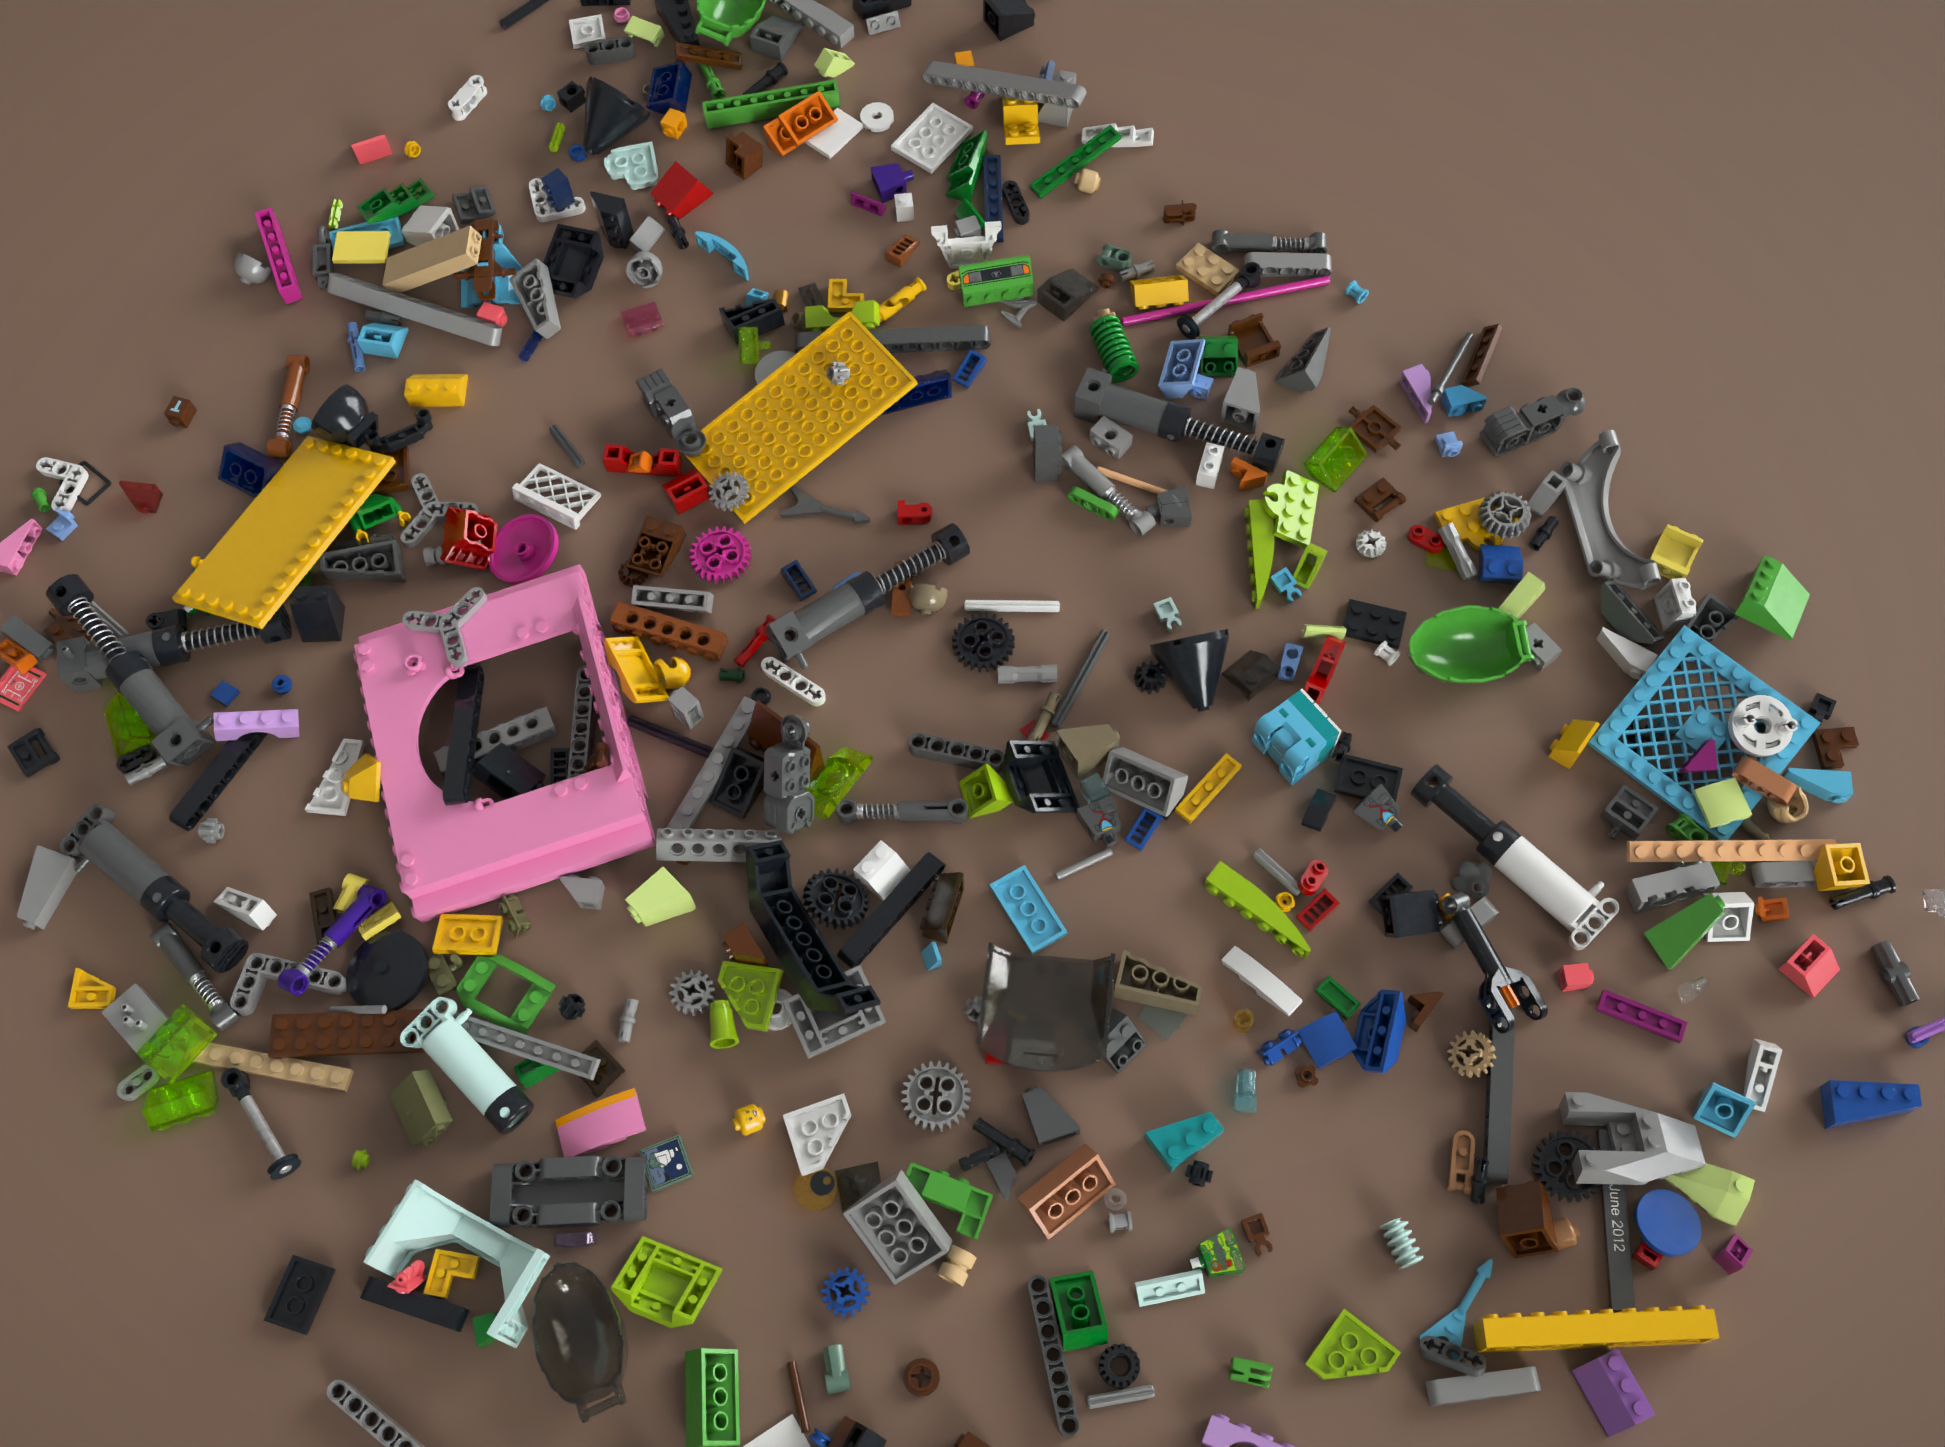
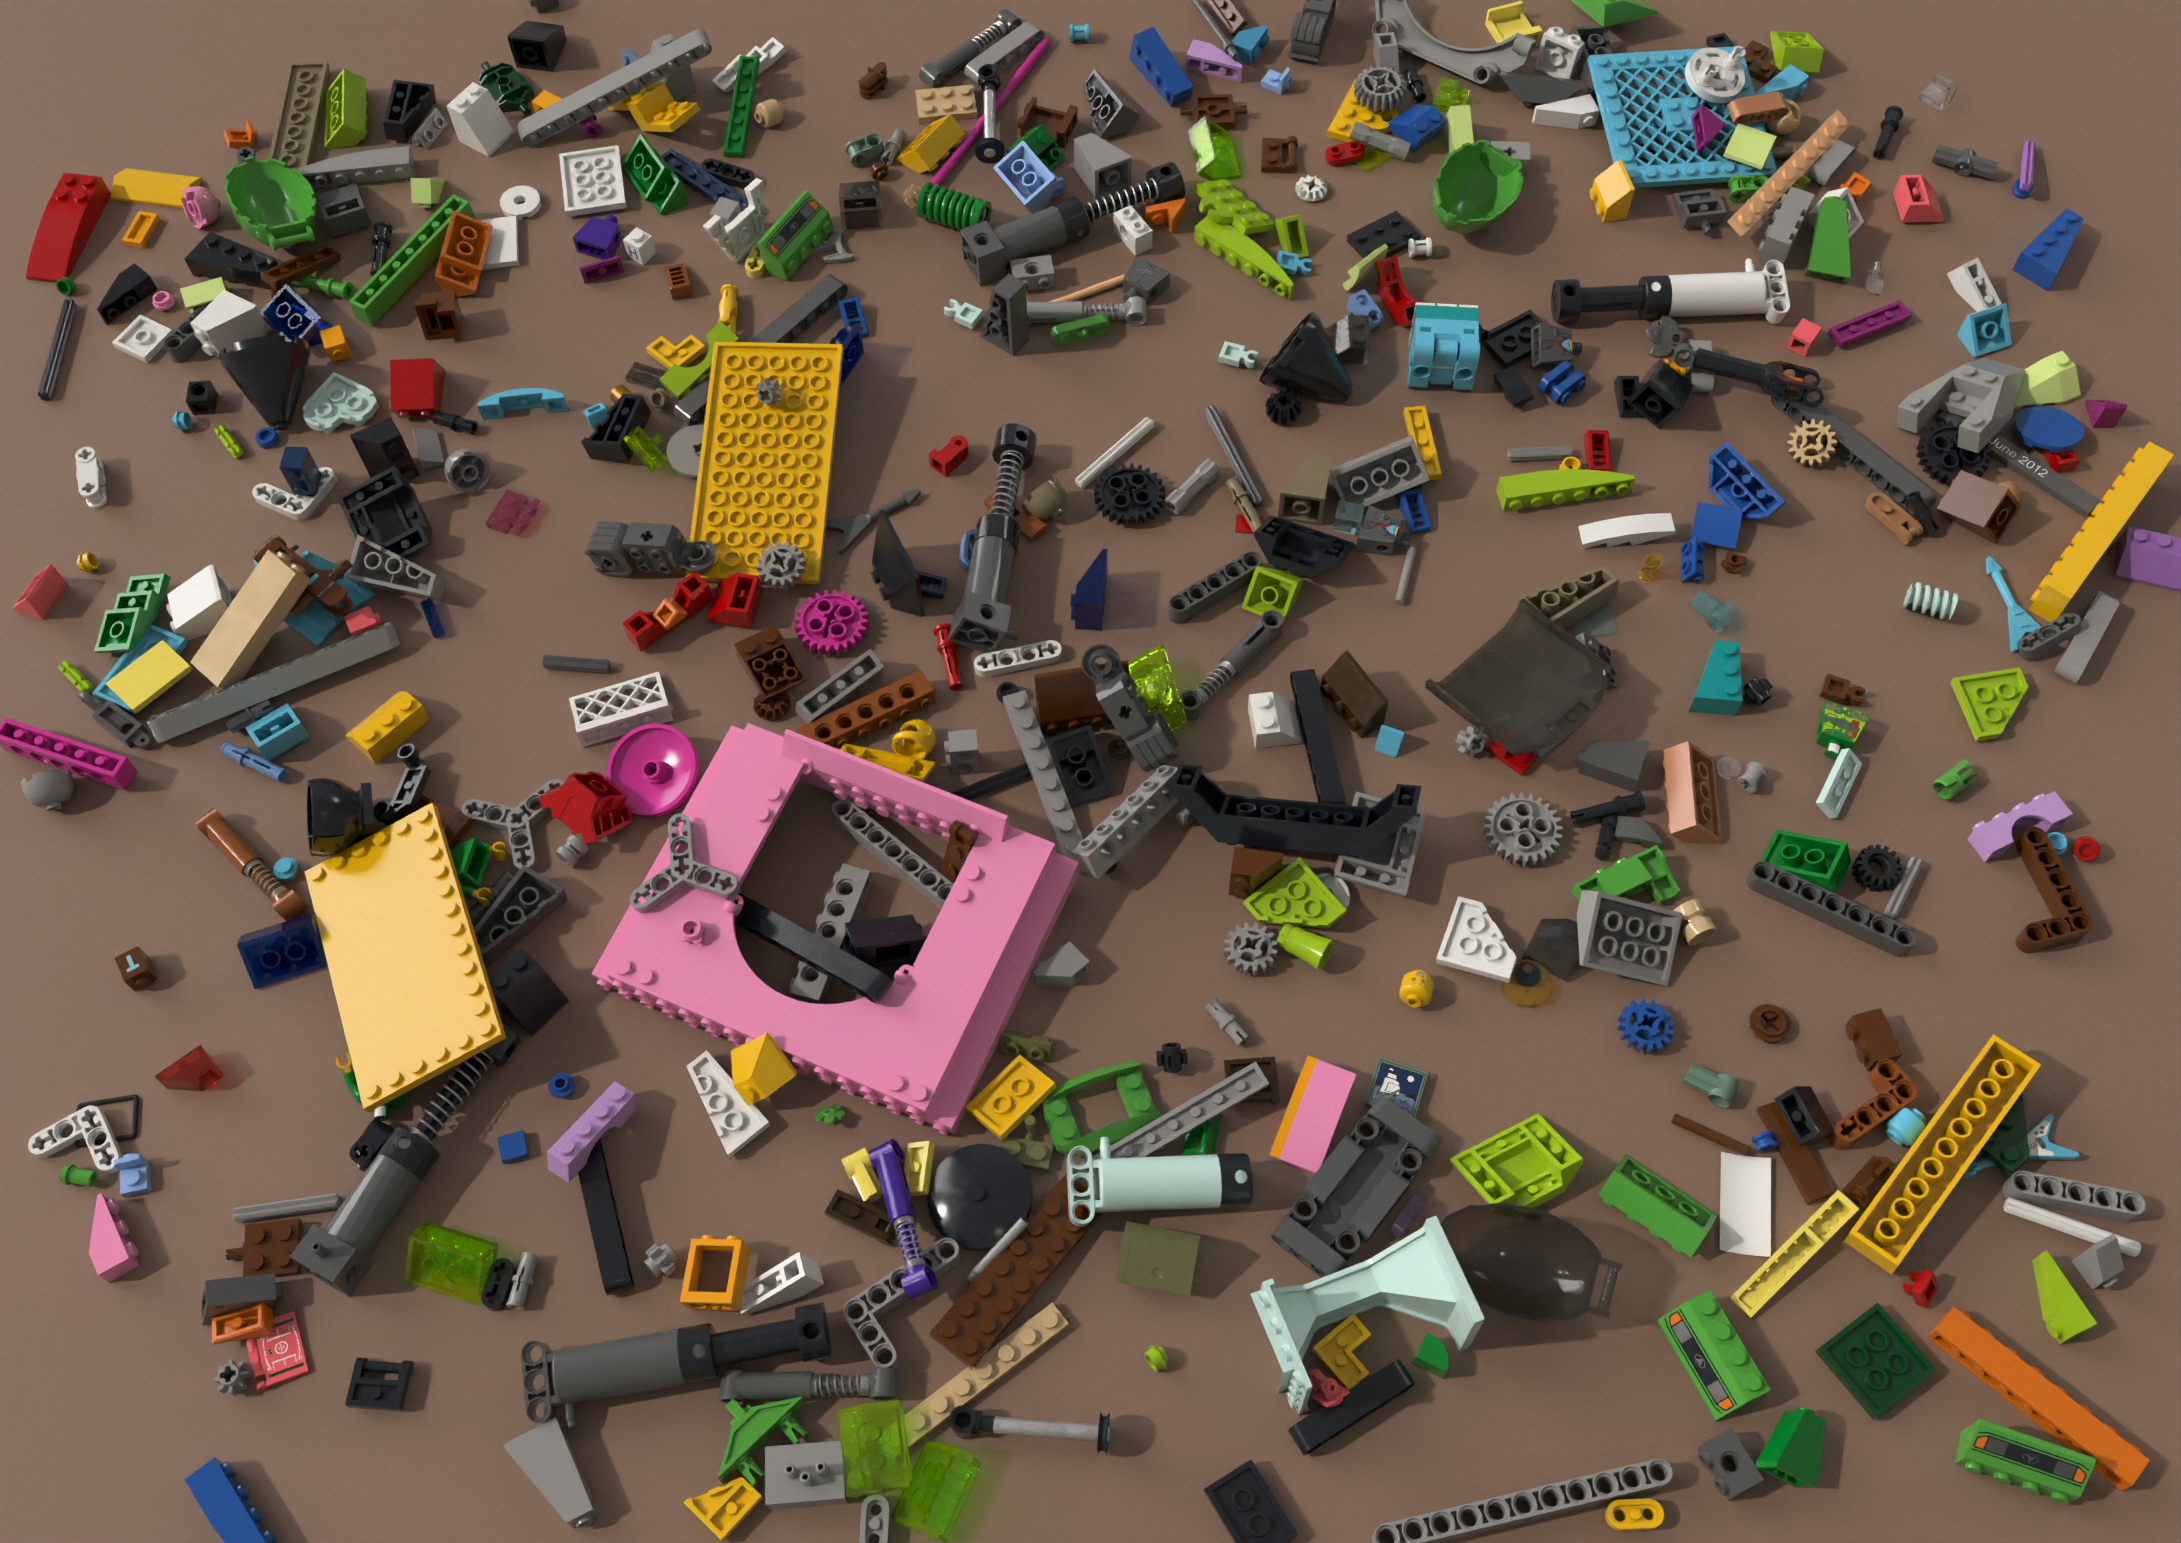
camera: 50 degrees left, 5 degrees down
(146, 968) = (752, 1429): none -> bright green connector
(177, 735) = (417, 1204): piece -> none
(232, 877) = (715, 1300): none -> light orange window
(377, 842) = (829, 1114): none -> bright green plant
(473, 205) = (220, 551): dark grey slope -> none
(559, 756) = (905, 884): black slope -> none
(628, 61) = (227, 322): none -> white slope
(659, 899) = (1138, 902): yellowish green slope -> none
(732, 675) = (962, 699): dark green pin -> none
(796, 540) = (895, 570): none -> black slope
(851, 902) = (1269, 770): black gear -> none
(876, 683) = (1090, 595): none -> clear blue slope
(910, 40) = (479, 120): none -> white slope
(957, 38) = (509, 97): none -> dark green plate
(966, 210) = (698, 210): green tile -> none
(1028, 909) = (1411, 641): medium azure plate -> none
(1315, 874) = (1568, 432): red plate -> none
(1337, 997) = (1683, 494): green tile -> none
(1349, 845) = (1562, 382): none -> blue brick
(1375, 364) = (1160, 67): none -> blue wedge
(1424, 1003) = (1747, 445): reddish brown slope -> none
(1558, 561) = (1448, 94): none -> clear neon green plate
(1840, 867) = (1861, 124): yellow slope -> none
(1876, 765) = (1796, 49): none -> lime slope

